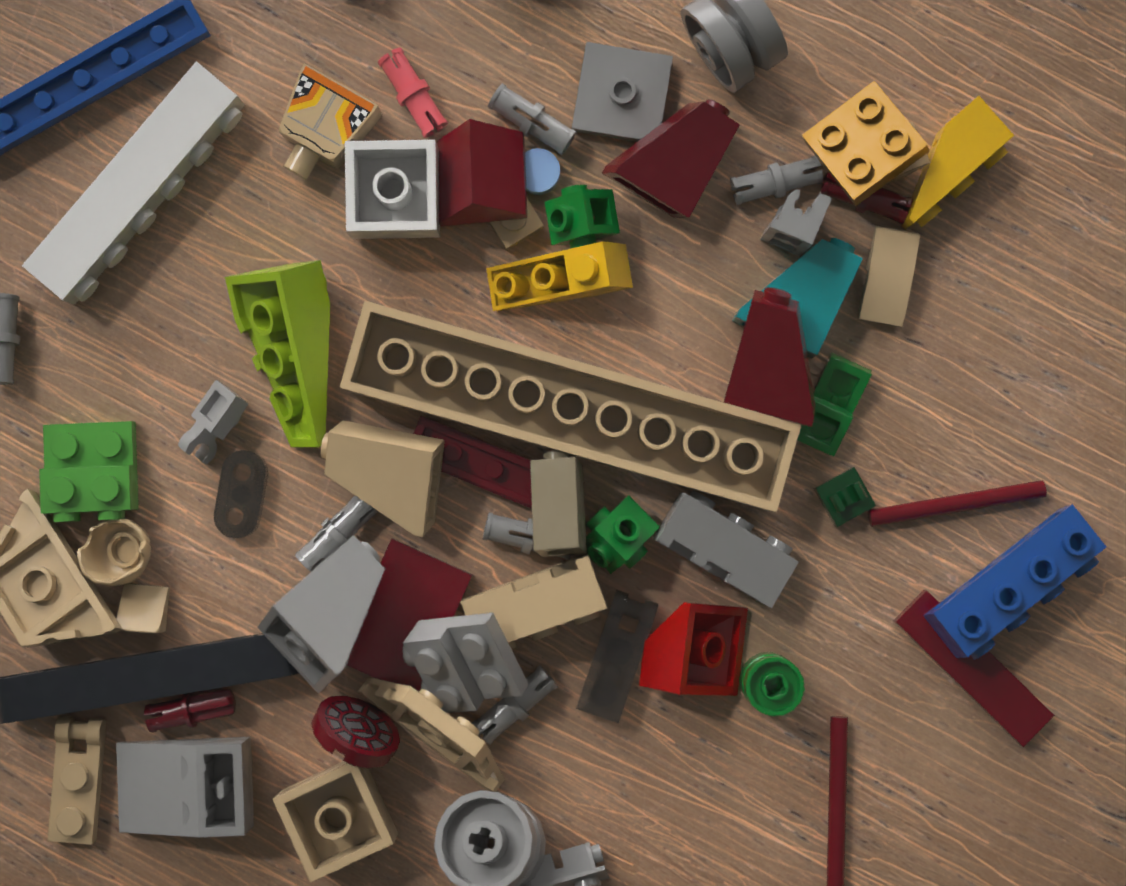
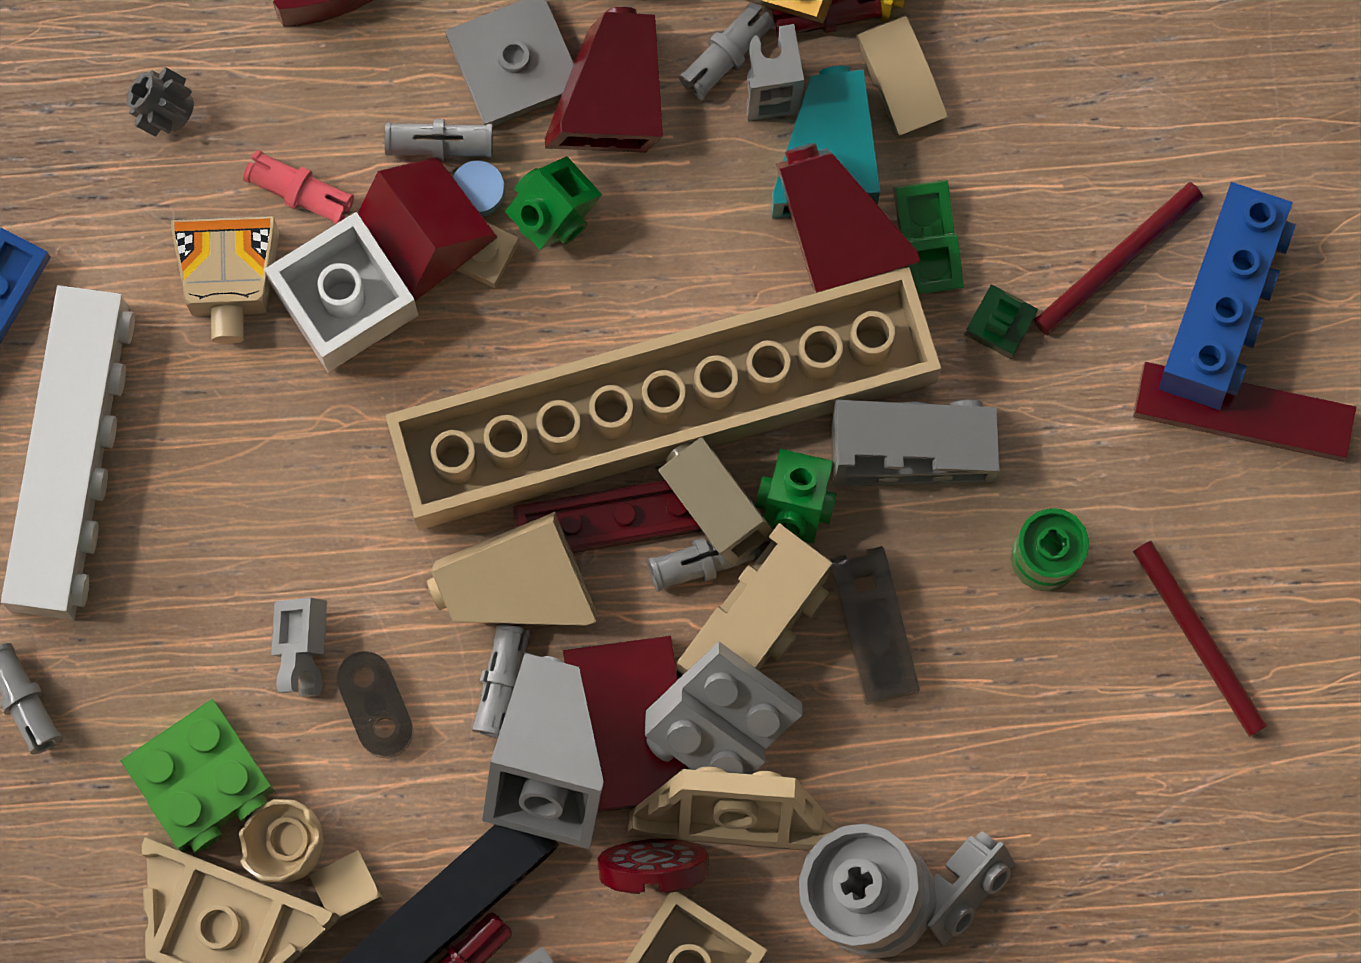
camera: 35 degrees left, 10 degrees down
(289, 326) = (324, 507): lime wedge -> none
(511, 709) = (802, 737): light grey pin -> none
(560, 276) = (568, 277): yellow slope -> none
(696, 651) = (951, 566): red slope -> none

